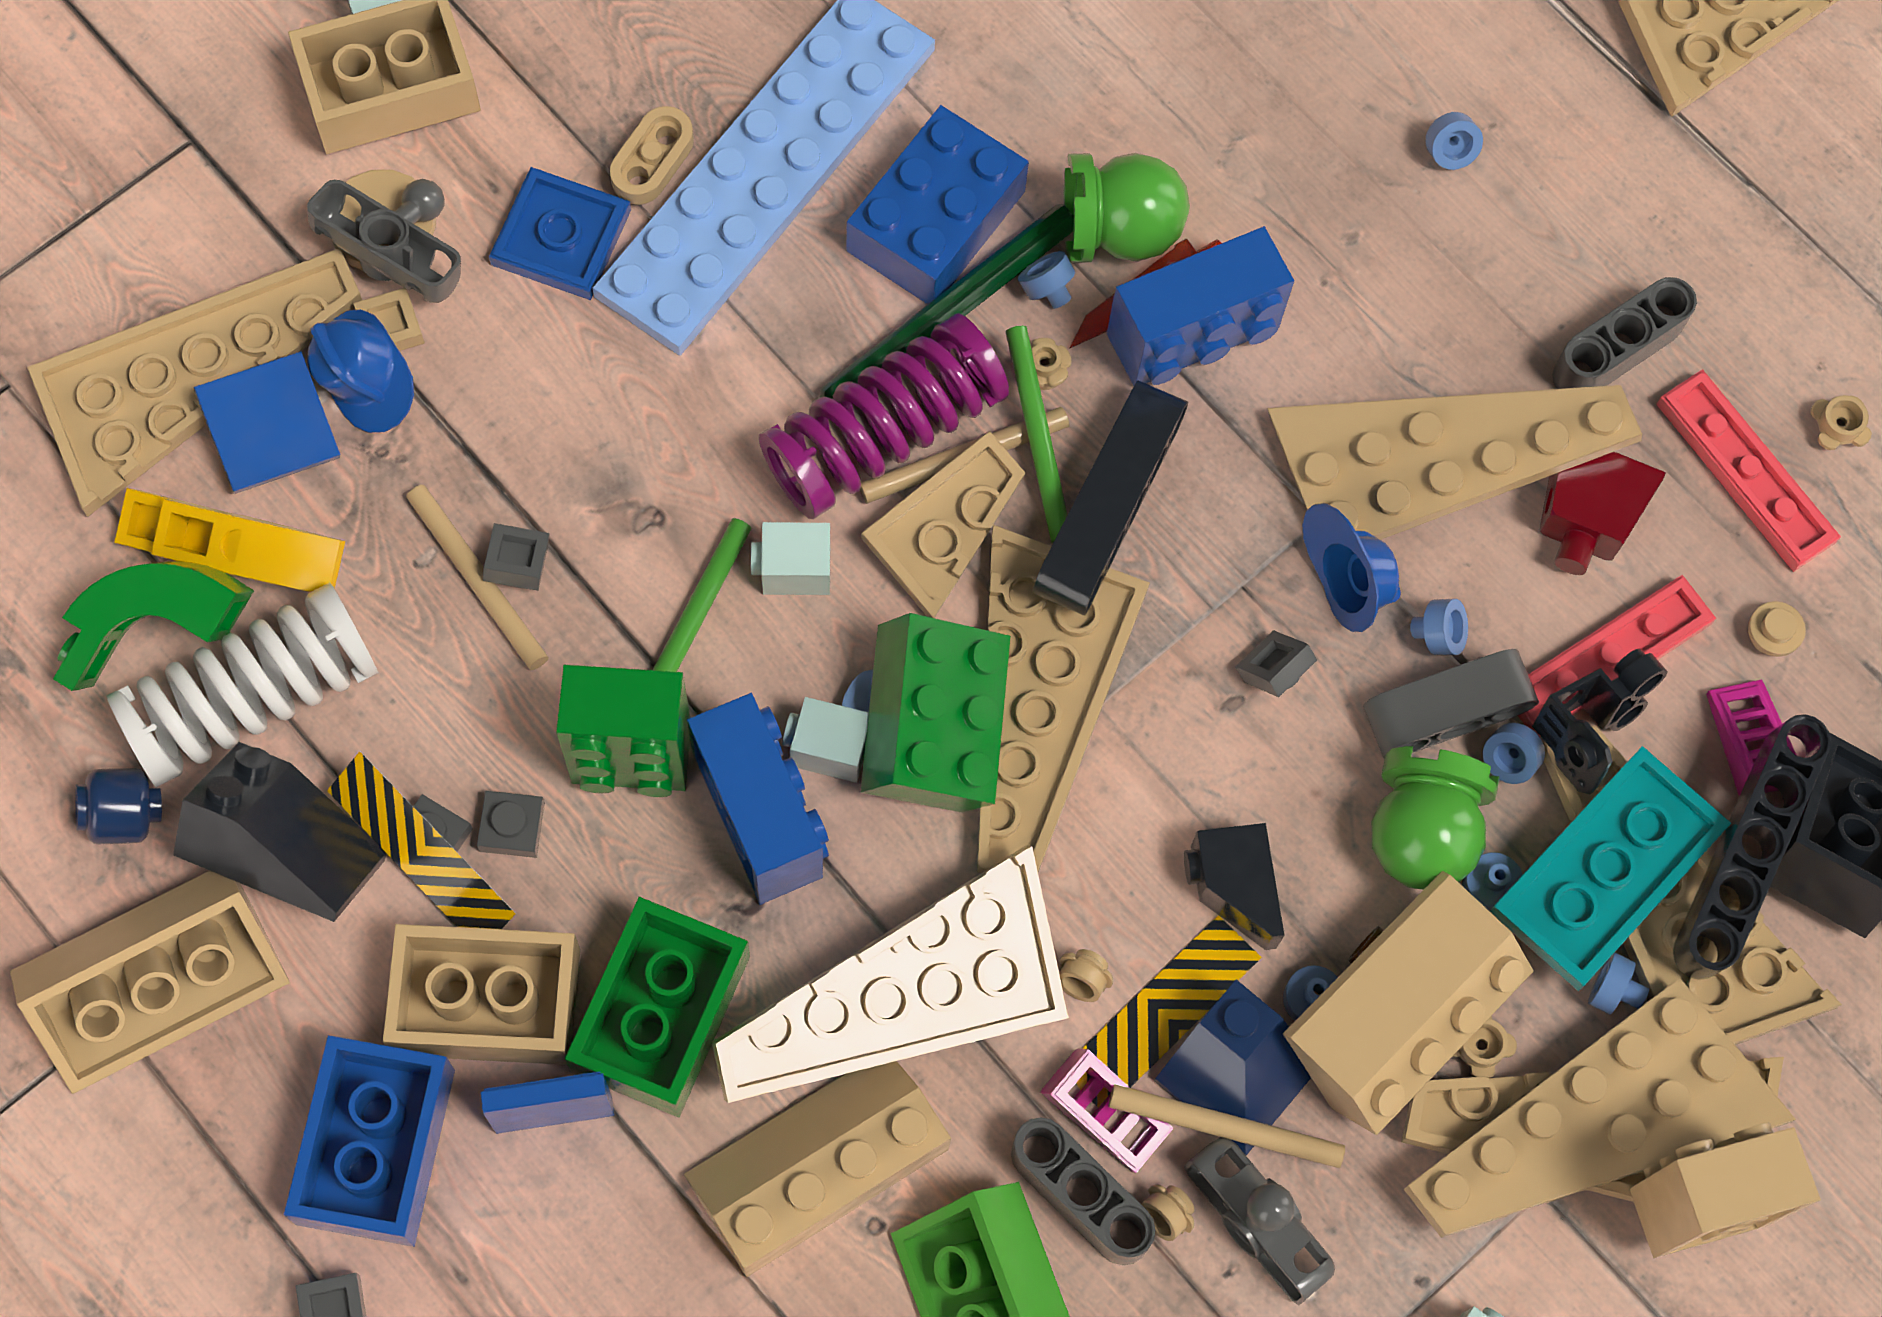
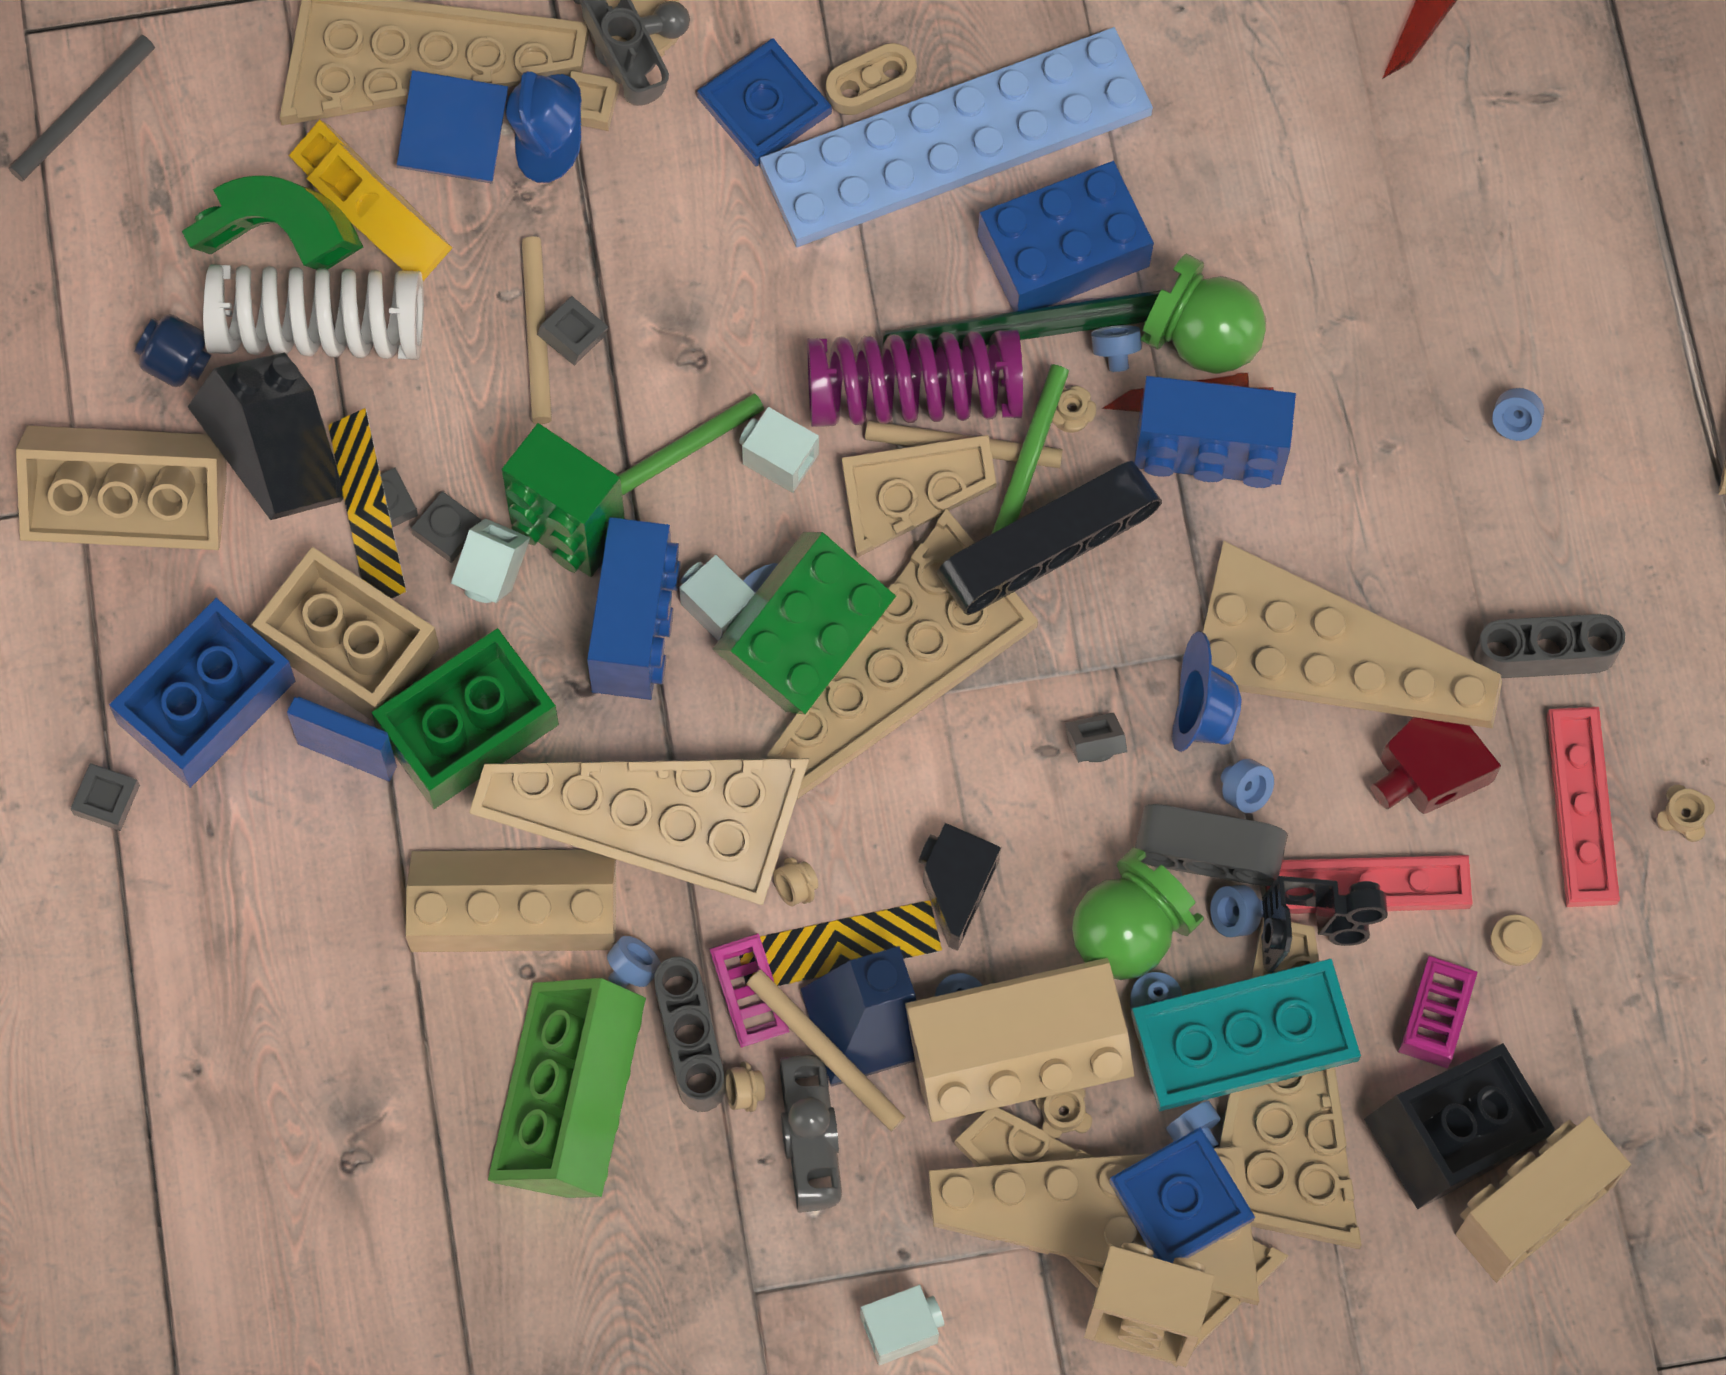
camera: 35 degrees right, 0 degrees up
(581, 833) = (490, 561): none -> light aqua brick
(980, 1154) = (632, 962): none -> medium blue tile
(1667, 1065) = (1182, 1198): none -> blue tile
(1771, 828) = (1378, 1061): black beam -> none

